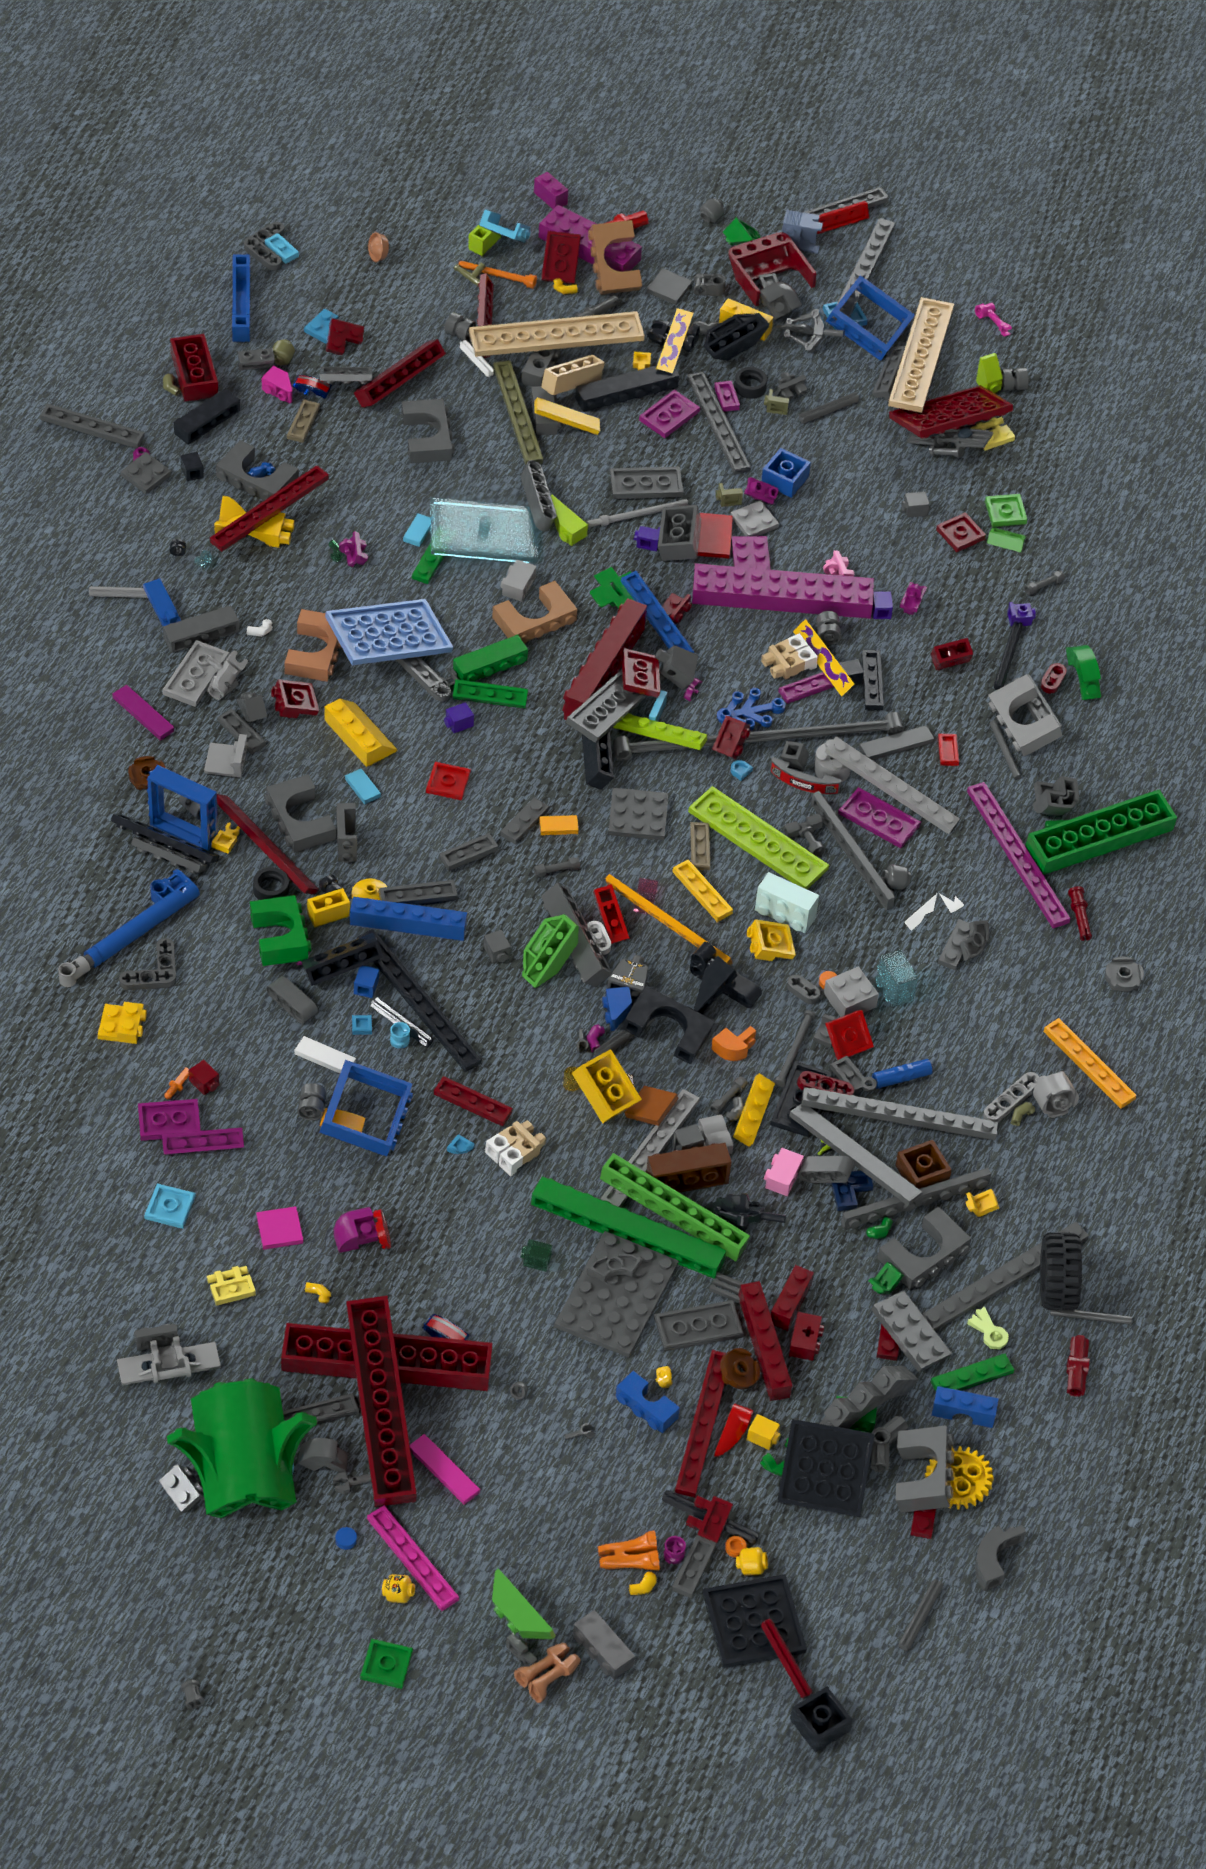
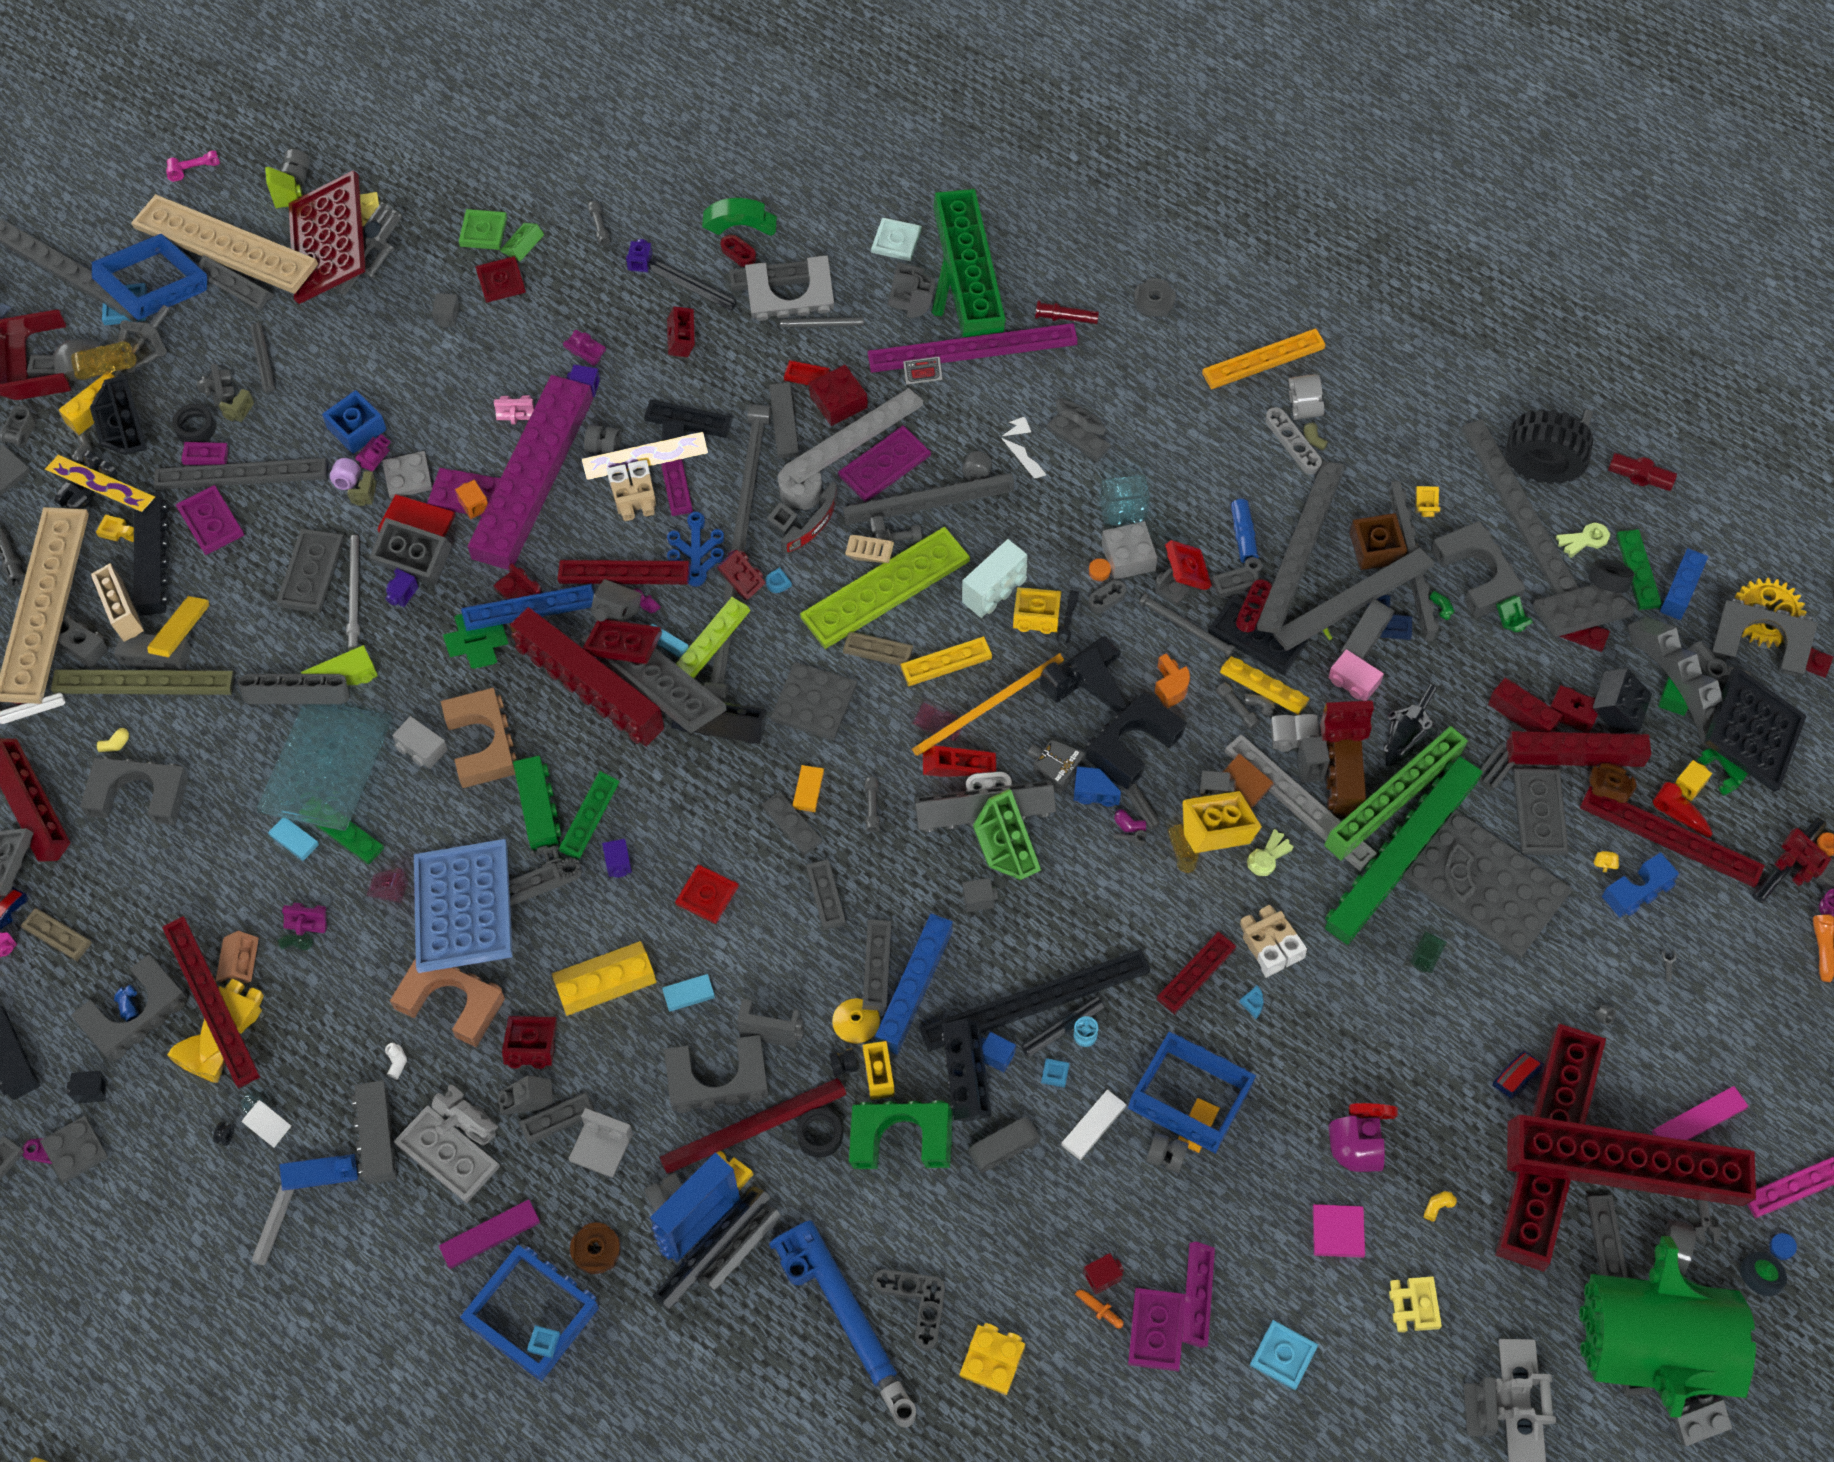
camera: 70 degrees left, 10 degrees up
(66, 751) = (543, 1341): none -> dark azure tile
(99, 777) = (540, 1369): none -> blue window
(191, 568) = (266, 1123): none -> white sticker
(314, 523) = (237, 957): none -> nougat panel
(315, 1520) = (1763, 1274): none -> black wheel
(395, 592) = (389, 885): none -> clear pink slope
(463, 411) = (115, 743): none -> light yellow arm
(587, 1132) = (1263, 861): none -> yellowish green piece
(643, 1083) = (1216, 783): none -> dark grey brick
(710, 668) = (623, 572): none -> dark red plate
(712, 1140) = (1346, 721): none -> dark red plate
(737, 479) = (345, 473): none -> lavender head
(739, 555) = (471, 499): none -> orange brick
(776, 307) = (102, 360): none -> clear yellow piece
(786, 816) = (857, 545): none -> tan slope
(789, 966) = (1072, 603): none -> black piece
(820, 1363) = (1622, 701): none -> black brick
(931, 770) = (838, 395): none -> dark red brick
(942, 1351) = (1611, 575): none -> black tyre
(981, 824) = (922, 370): none -> sticker
(1112, 783) = (896, 239): none -> light aqua tile

